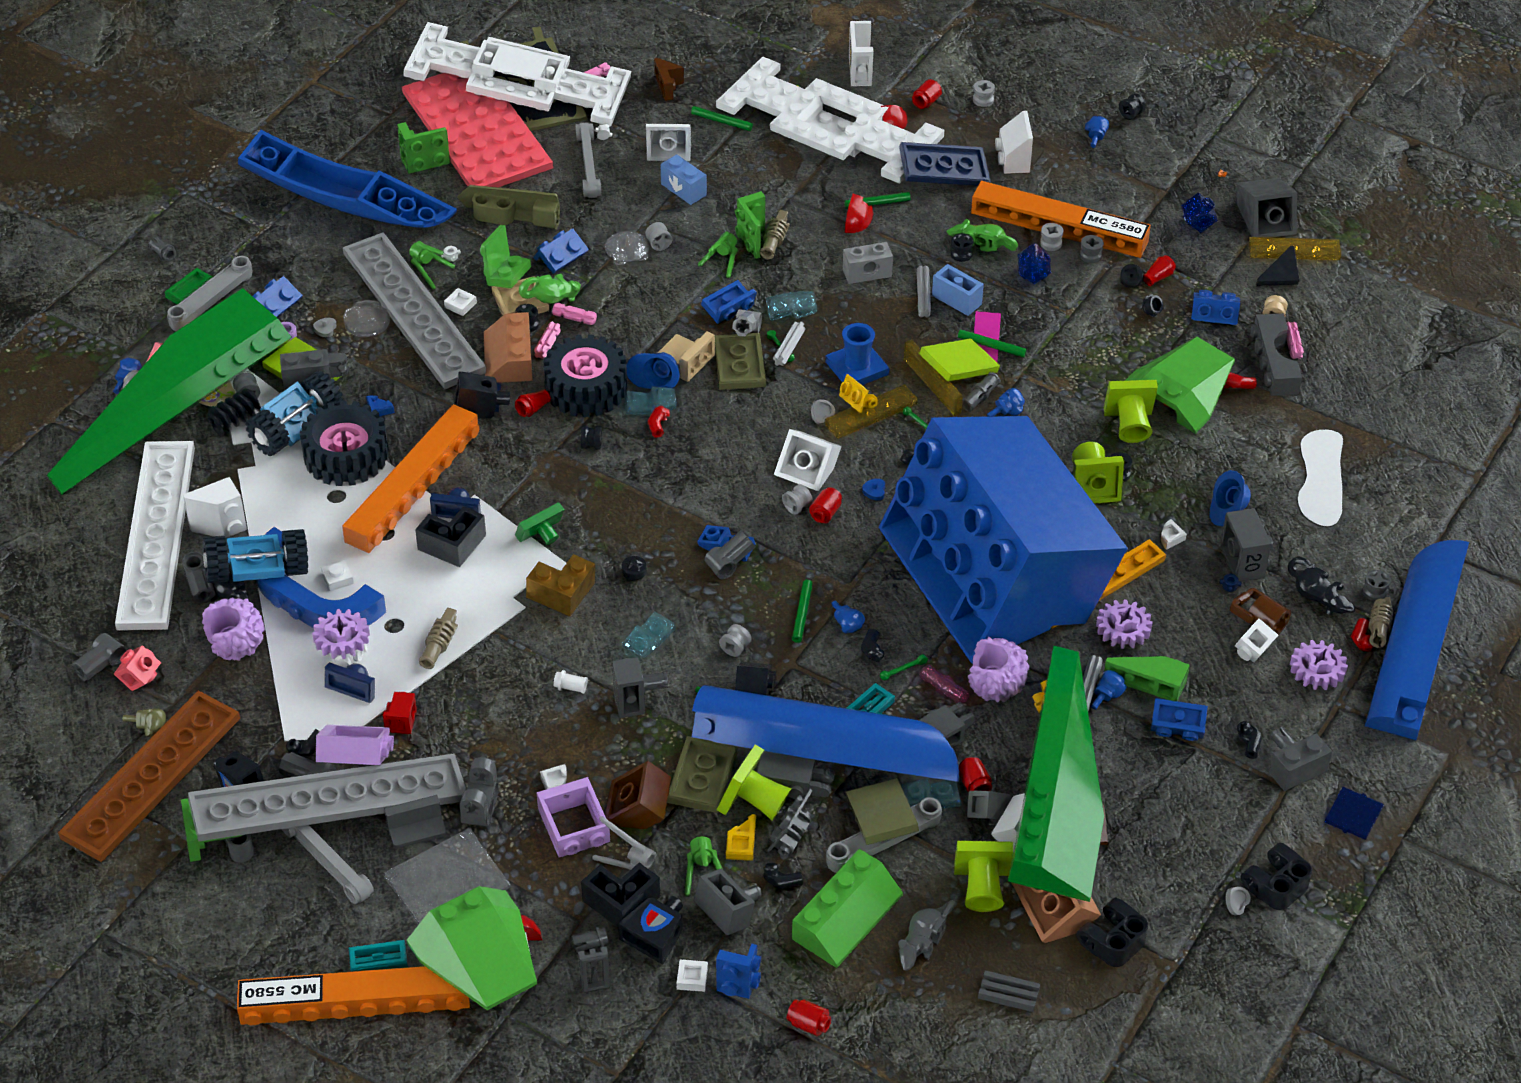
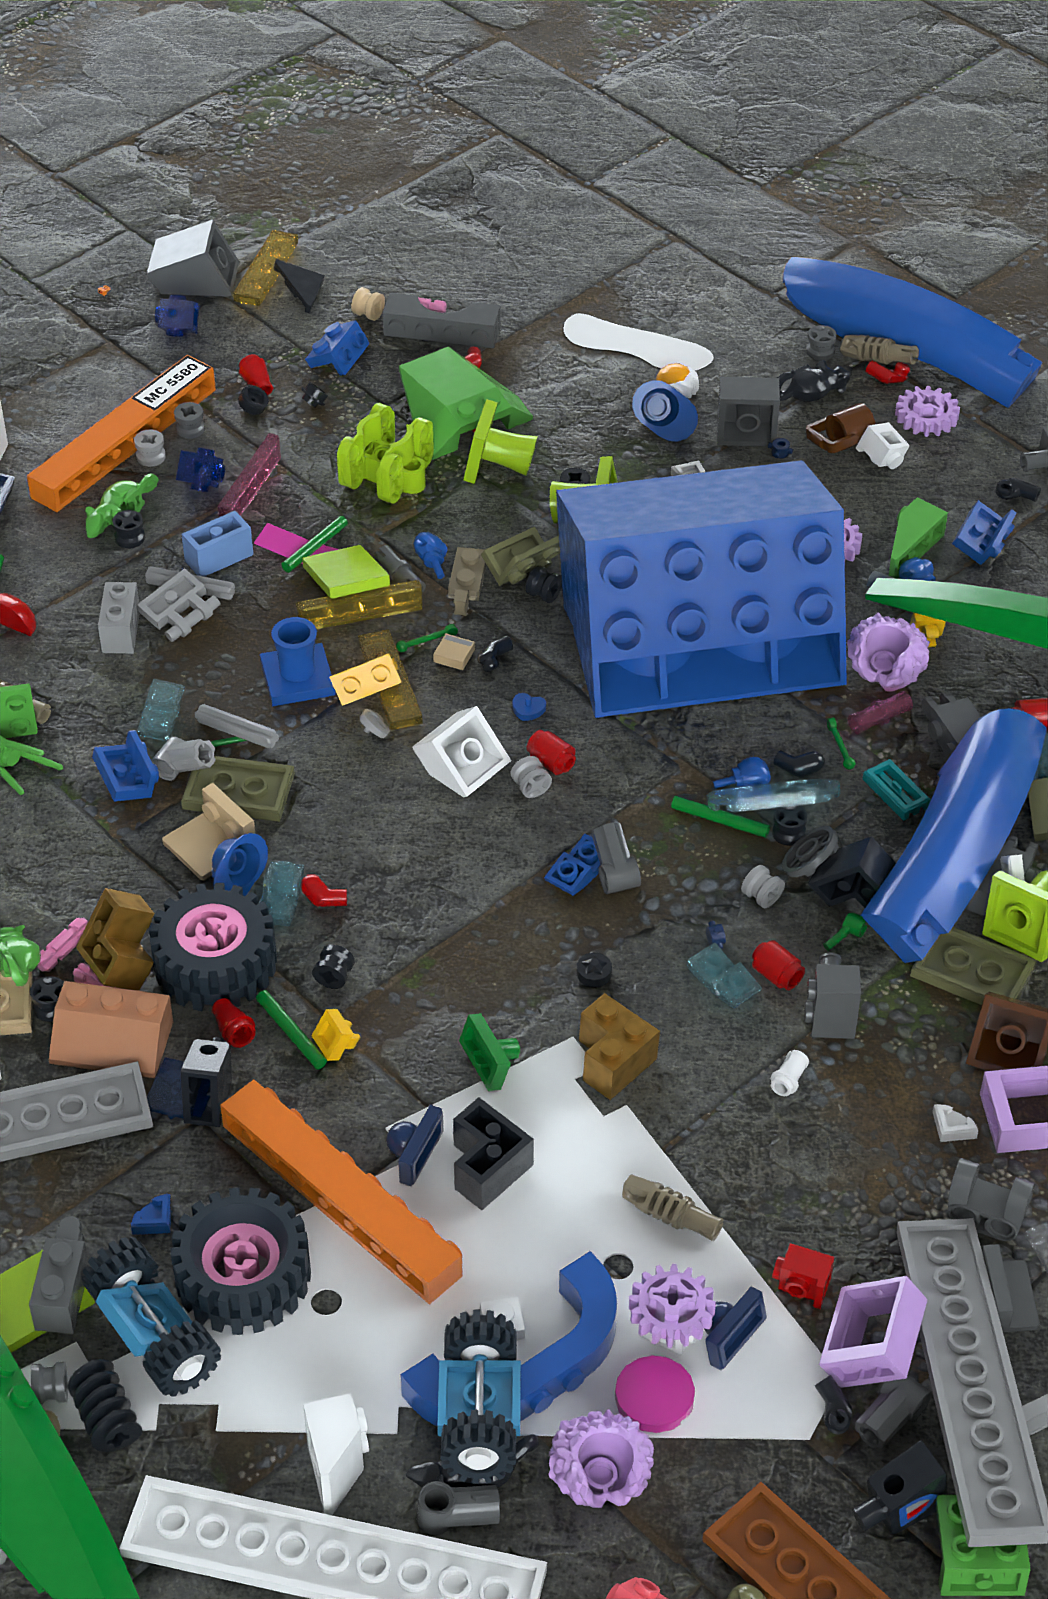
camera: 75 degrees left, 0 degrees up
(296, 656) = (655, 1393): none -> dark pink tile
(534, 449) = (334, 1035): none -> yellow tile
(538, 433) = (291, 1029): none -> green bar
(575, 321) = (114, 938): none -> pearl gold brick
(663, 658) = (778, 965): none -> red brick
(684, 625) = (716, 934): none -> dark blue piece
(772, 658) = (810, 852): none -> dark grey wheel
(778, 766) = (1013, 866): none -> white tile
(804, 647) = (789, 824): none -> black wheel
(822, 629) = (774, 795): none -> clear light blue tile
(896, 283) = (172, 599): none -> light grey plate
(910, 436) = (454, 651): none -> tan tile
(1037, 293) = (252, 477): none -> clear pink tile
(1091, 351) = (380, 459): none -> lime piece
(1277, 505) = (680, 378): none -> hair

